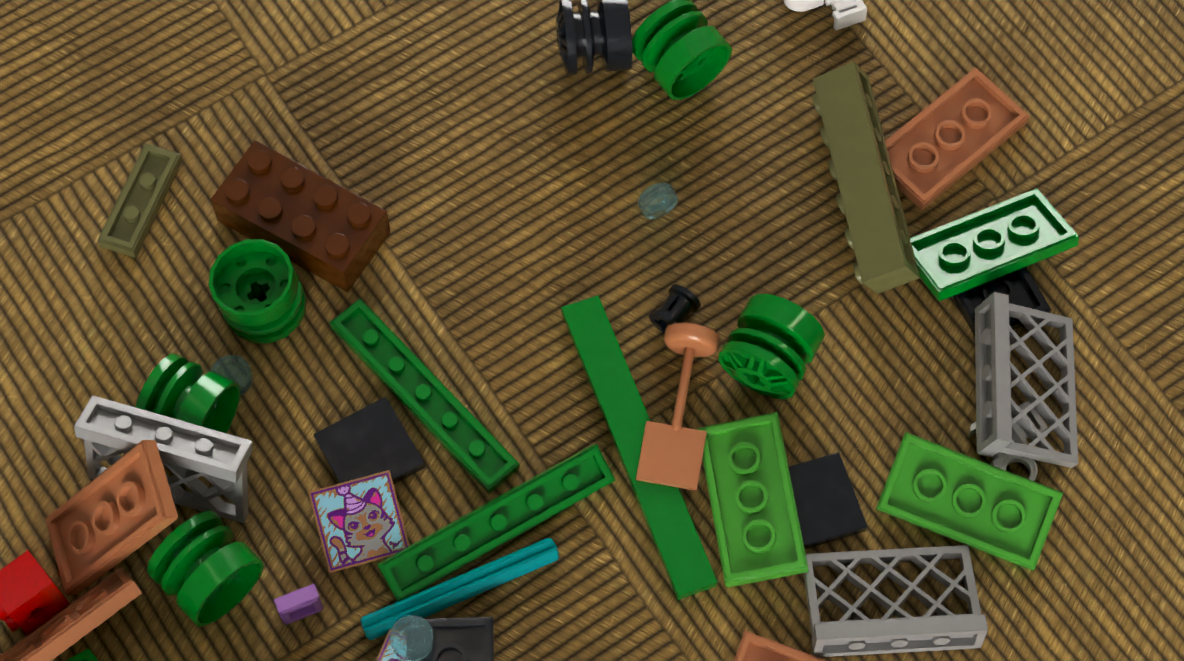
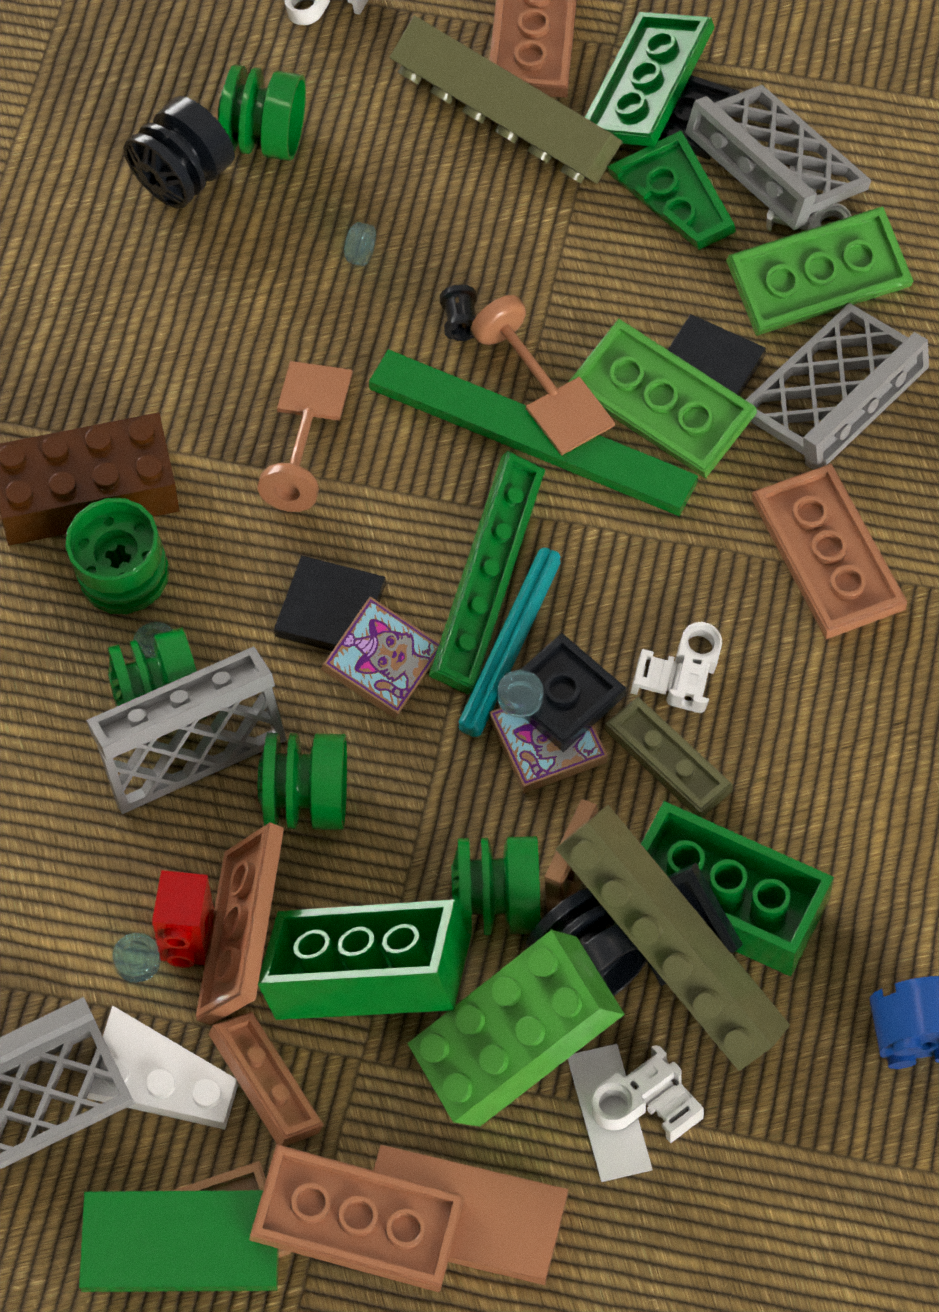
camera: 40 degrees left, 5 degrees down
(111, 517) = (194, 795): nougat tile -> none
(298, 604) = (401, 752): medium lavender tile -> none
(425, 396) = (327, 532): green tile -> none
(517, 282) = (312, 393): none -> nougat piece
(771, 346) = (567, 273): green wheel -> none
(926, 348) = (676, 189): none -> green wing

